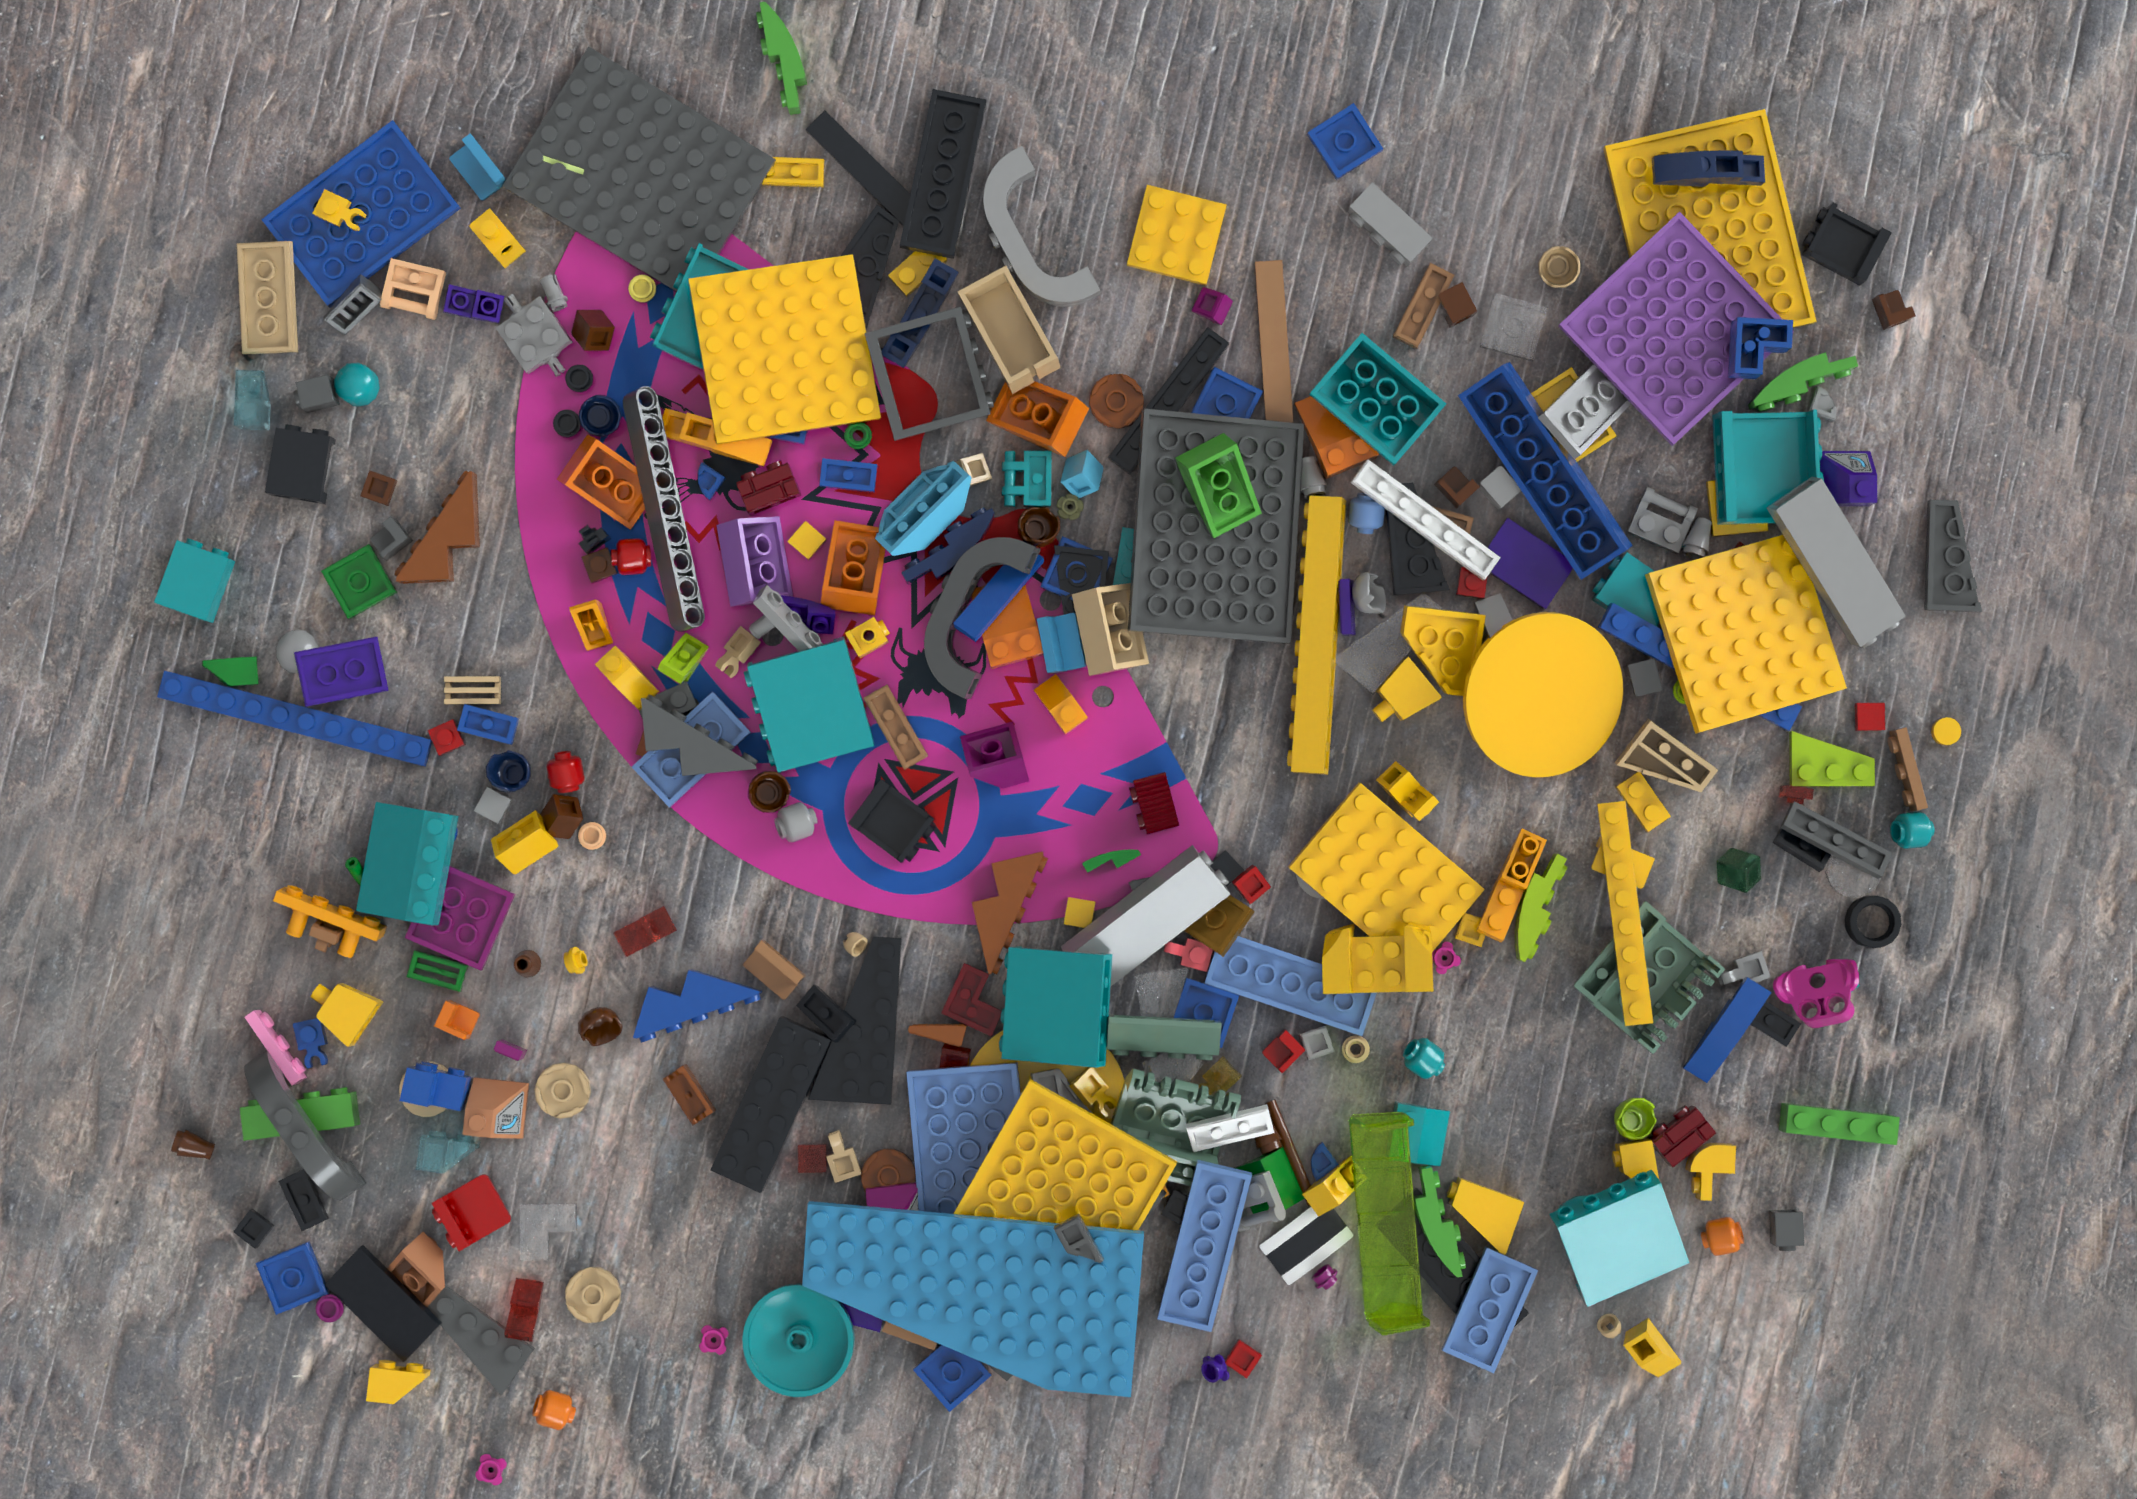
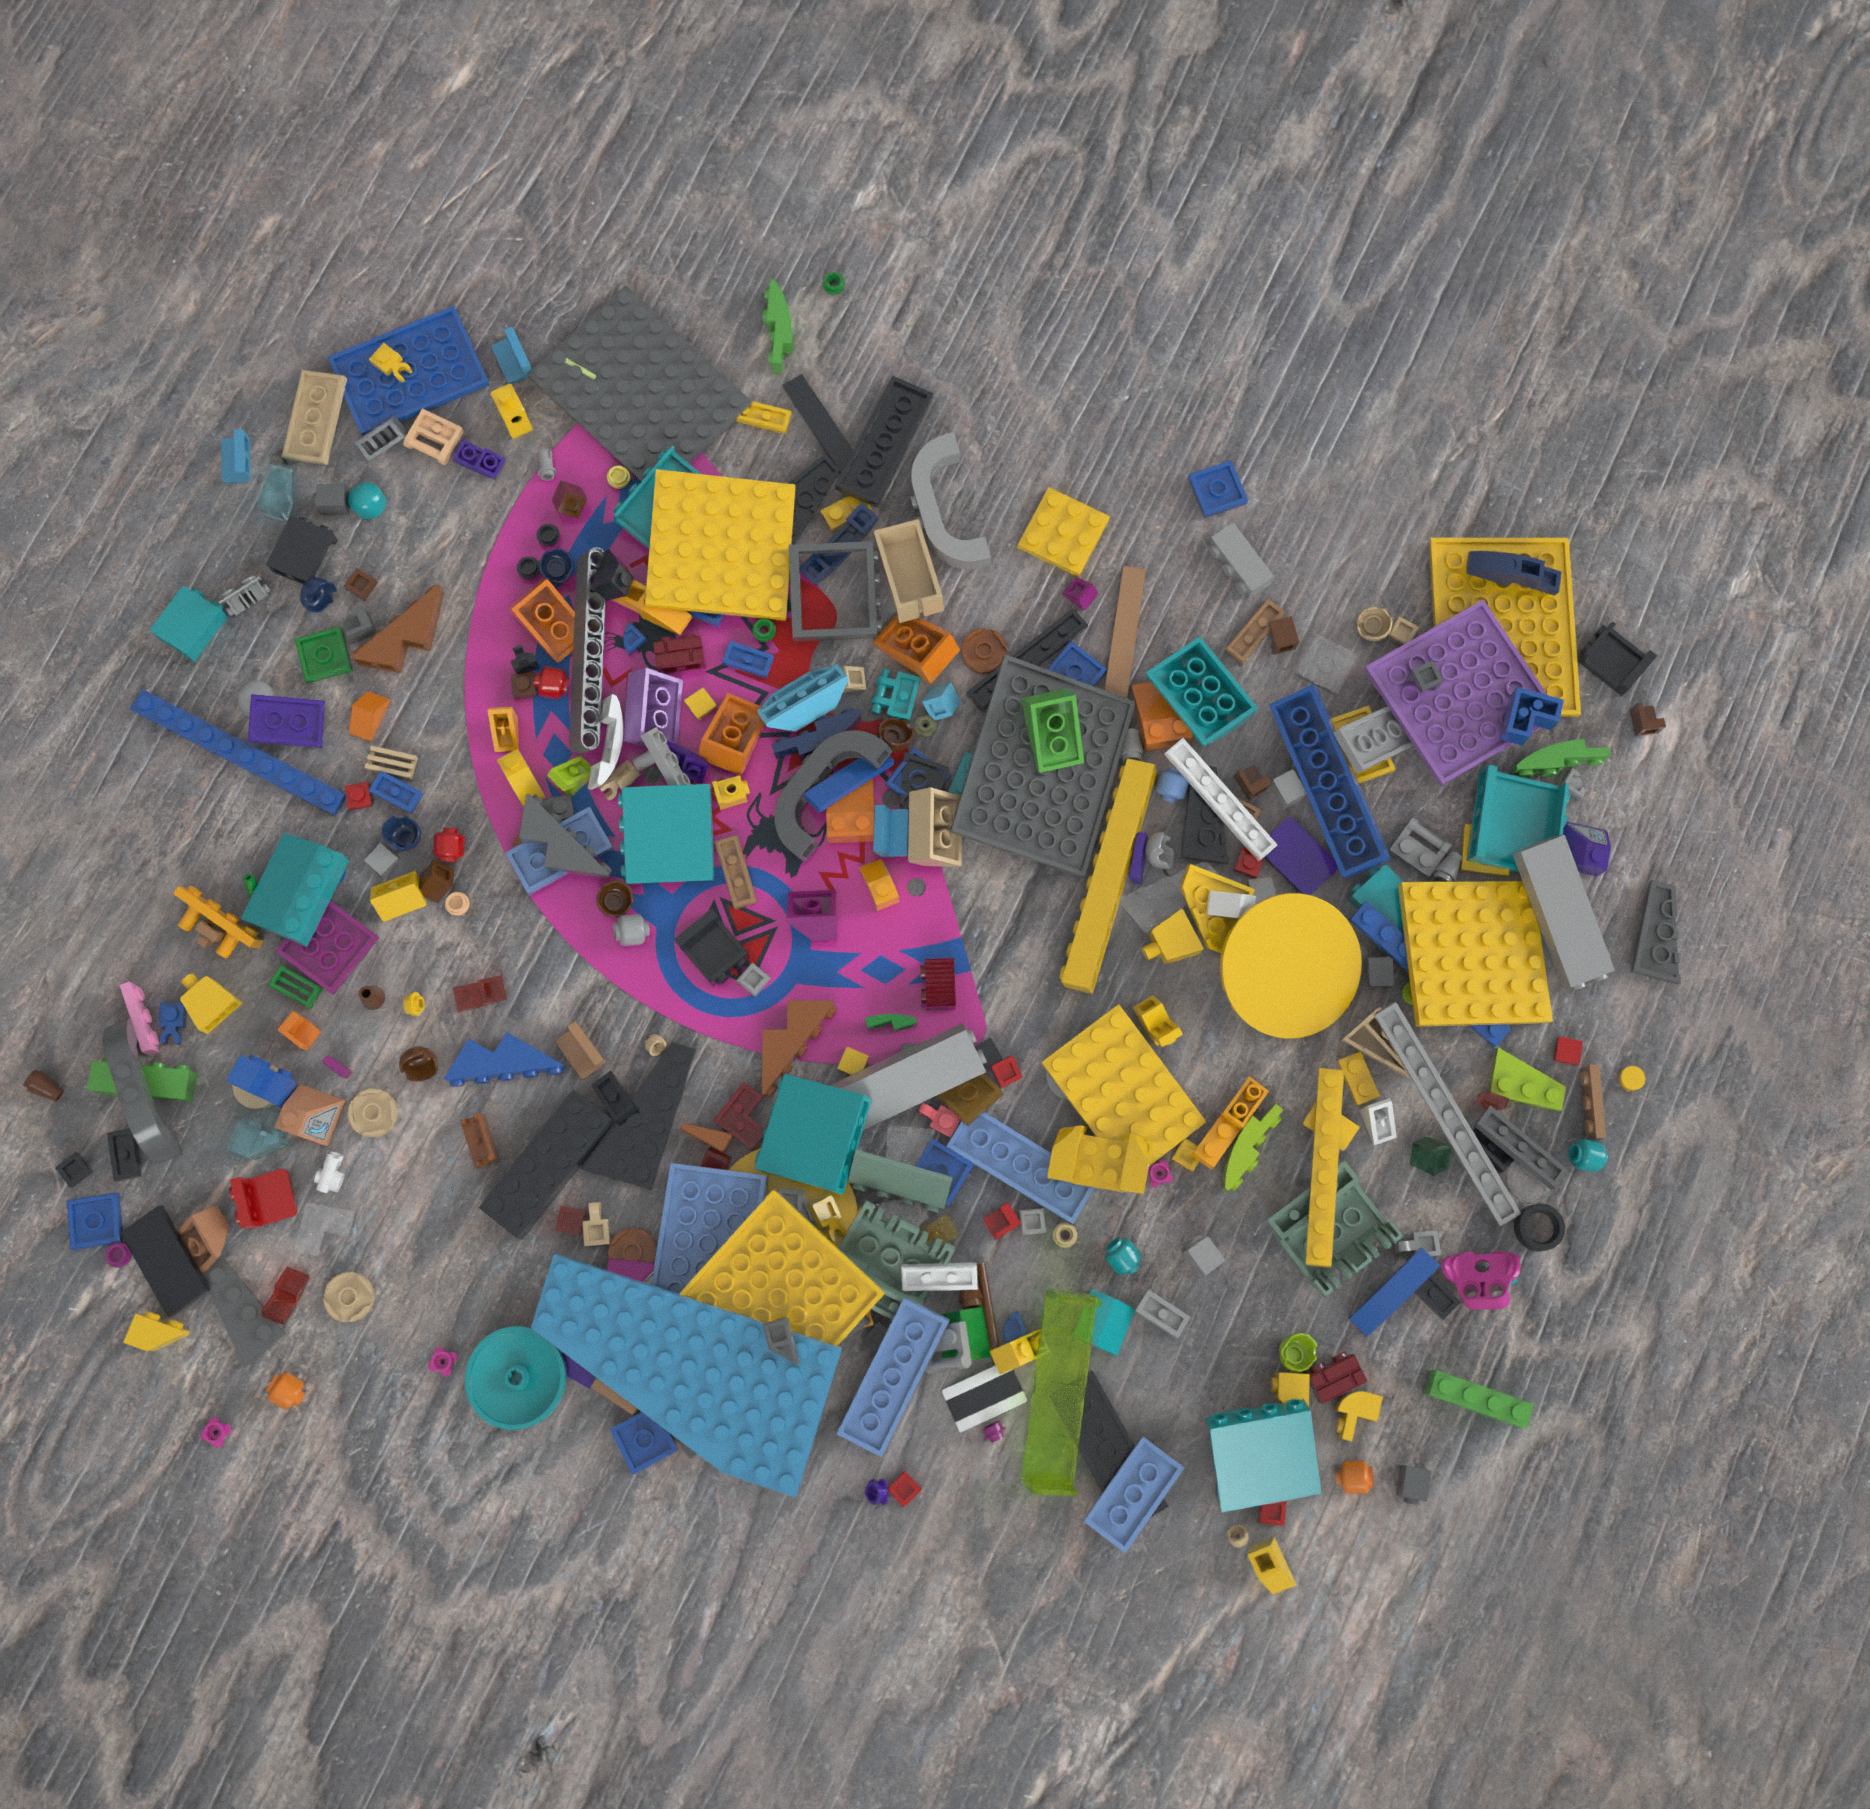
camera: 10 degrees right, 10 degrees down
(189, 368) = (236, 458): none -> dark azure panel
(234, 671) = (199, 702): green slope -> none
(236, 538) = (250, 584): none -> light grey hinge
(332, 513) = (317, 594): none -> dark blue hair
(430, 641) = (367, 715): none -> orange slope
(534, 335) = (521, 494): light grey plate -> none
(535, 1173) = (329, 1177): none -> white plate
(671, 418) = (612, 577): none -> black slope
(719, 612) = (612, 716): none -> white slope
(946, 845) = (753, 979): none -> light grey tile
(1439, 1233) = (1104, 1414): bright green slope -> none
(1460, 641) = (1228, 904): none -> white slope
(1480, 1110) = (1162, 1314): none -> light grey plate
(1487, 1211) = (1149, 1404): yellow slope -> none
(1511, 1039) = (1202, 1255): none -> light grey brick
(1594, 266) = (1402, 631): none -> tan tile
(1631, 326) = (1426, 677): none -> dark grey panel
(1642, 1294) = (1273, 1513): none -> red tile
(1675, 844) = (1379, 1121): none -> white slope
(1747, 822) = (1447, 1113): none -> light grey plate

